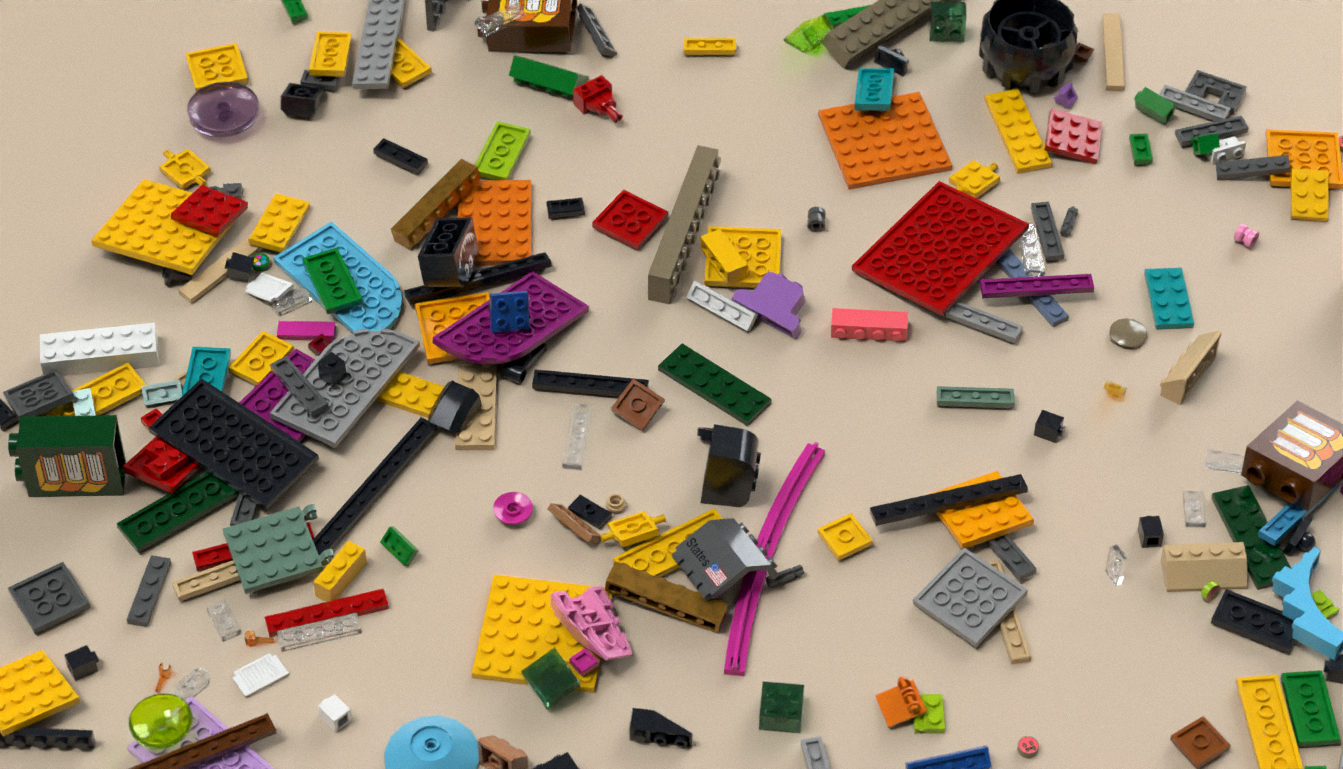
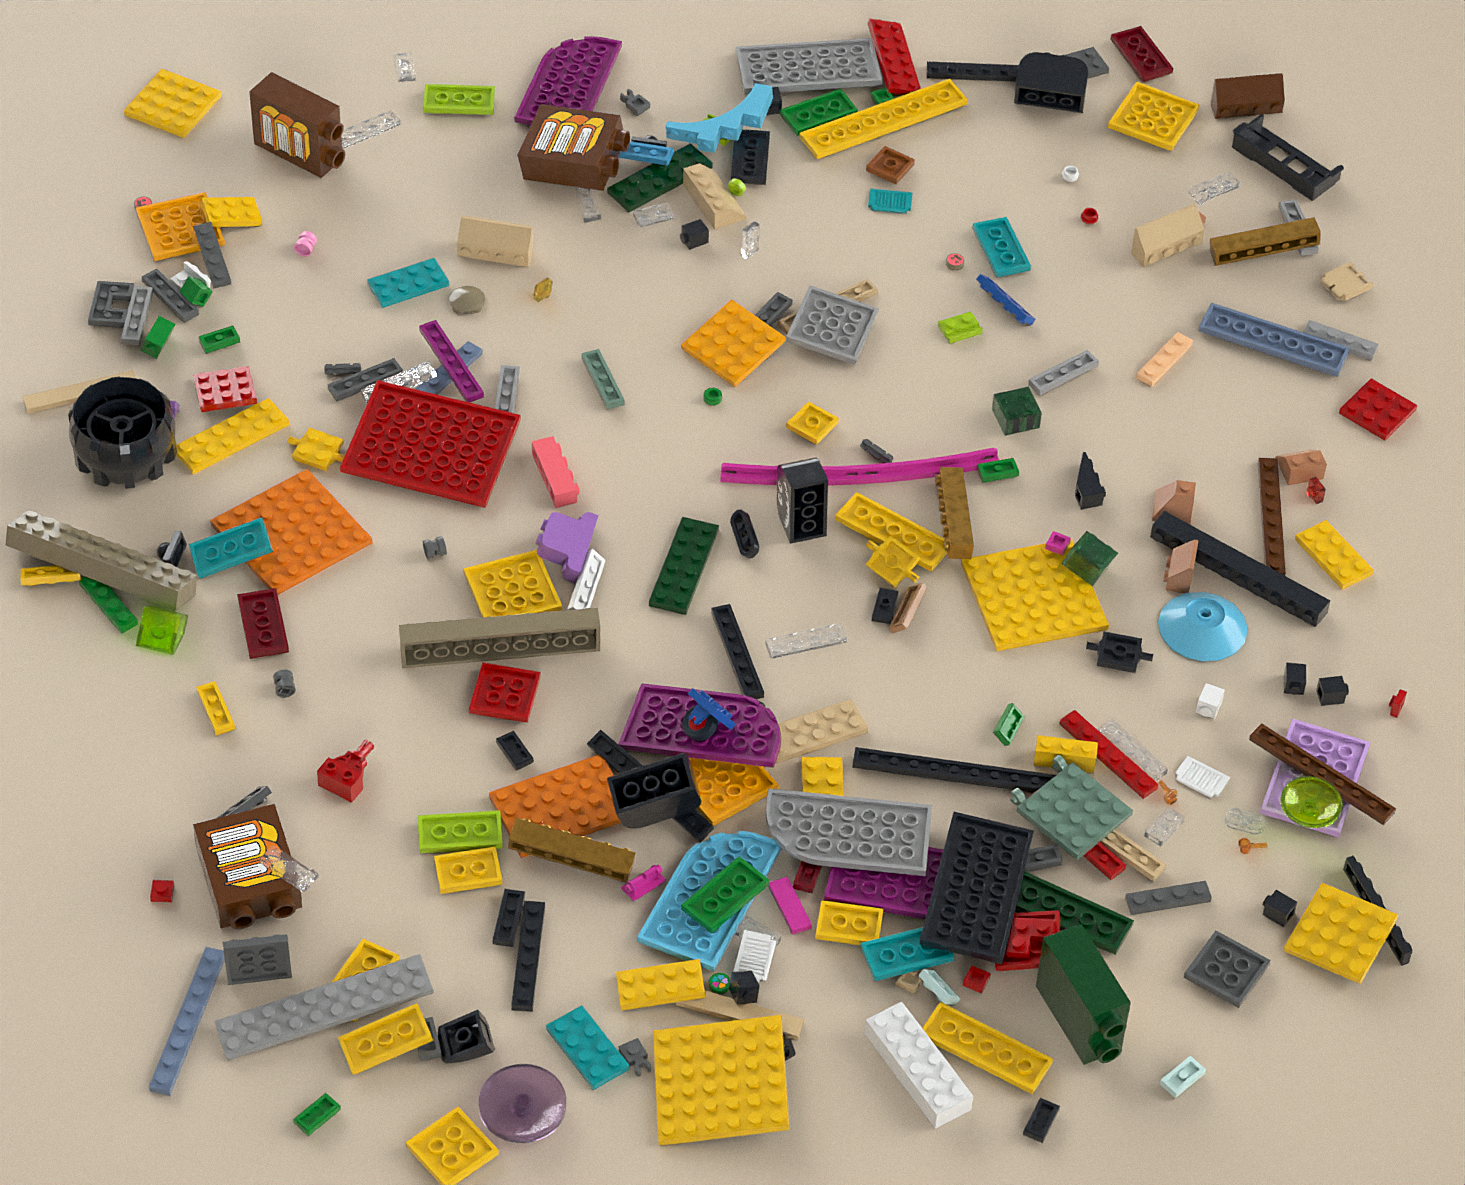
camera: 115 degrees left, 0 degrees up
(39, 395) = (1009, 1083): dark grey plate -> none
(83, 403) = (999, 1039): light aqua plate -> none
(184, 168) = (624, 1107): yellow plate -> none
(209, 210) = (685, 1043): red plate -> none
(255, 167) = (587, 1047): none -> teal plate
(299, 386) = (885, 853): dark grey plate -> none
(332, 369) = (853, 831): black brick -> none
(360, 160) = (528, 956): none -> black plate
(384, 245) = (644, 883): none -> dark pink hinge
(434, 667) = (1119, 652): none -> black plate
(455, 407) = (834, 736): black slope -> none
(459, 143) = (468, 870): none -> yellow plate
(510, 502) = (917, 656): dark pink dish -> none
(545, 75) = (325, 829): green slope -> none
(592, 622) = (1019, 547): bright pink wedge -> none
(615, 503) = (865, 589): tan plate -> none
(637, 404) = (748, 603): dark orange plate -> none
(712, 89) = (285, 686): none -> dark grey wheel
(712, 663) = (998, 470): none -> green plate
(721, 556) = (901, 478): dark grey hinge -> none
(723, 256) = (531, 590): yellow brick -> none
(786, 94) = (263, 623): none -> dark red plate
(901, 702) = (965, 341): orange hinge -> none
(918, 475) = (712, 396): none -> green tile
(947, 21) = (104, 514): clear green brick -> none
(948, 499) = (741, 358): black plate -> none
(1049, 426) = (612, 322): black brick -> none
(1147, 726) = (890, 200): none -> teal window

